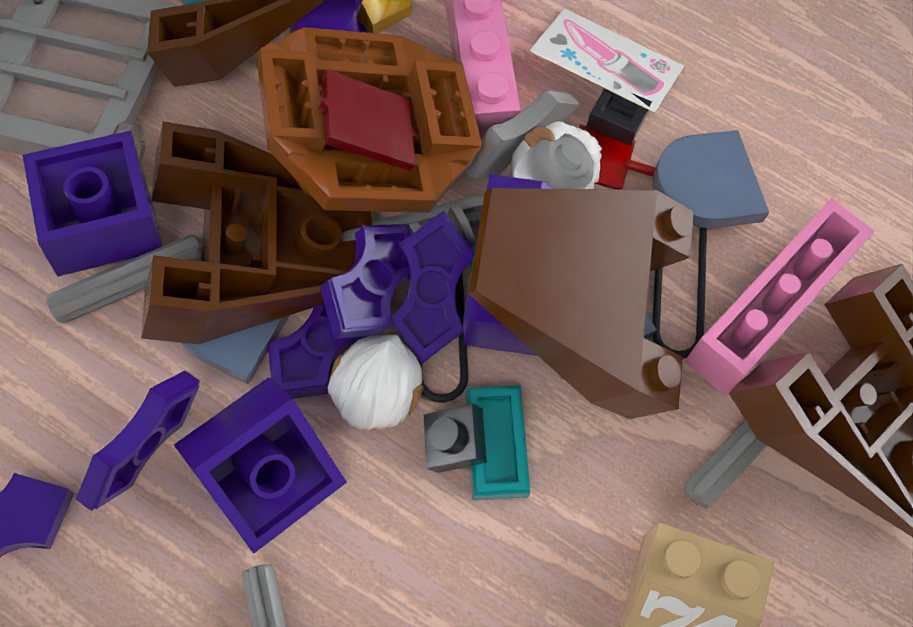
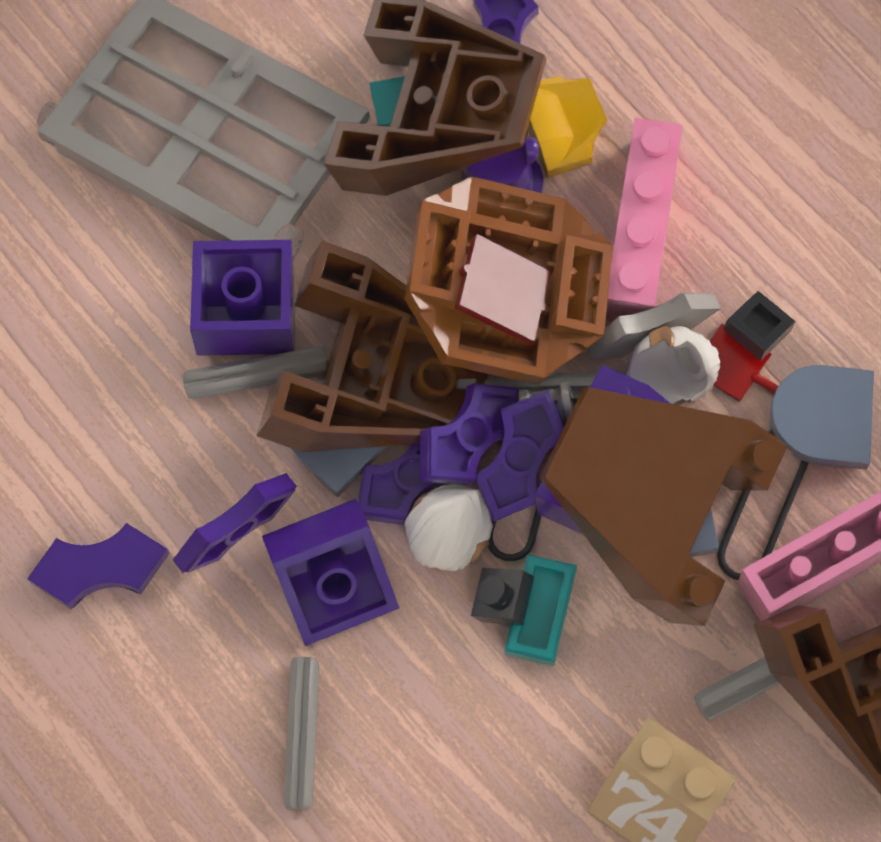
camera: 30 degrees right, 5 degrees up
(607, 59) = (770, 262): white sticker -> none

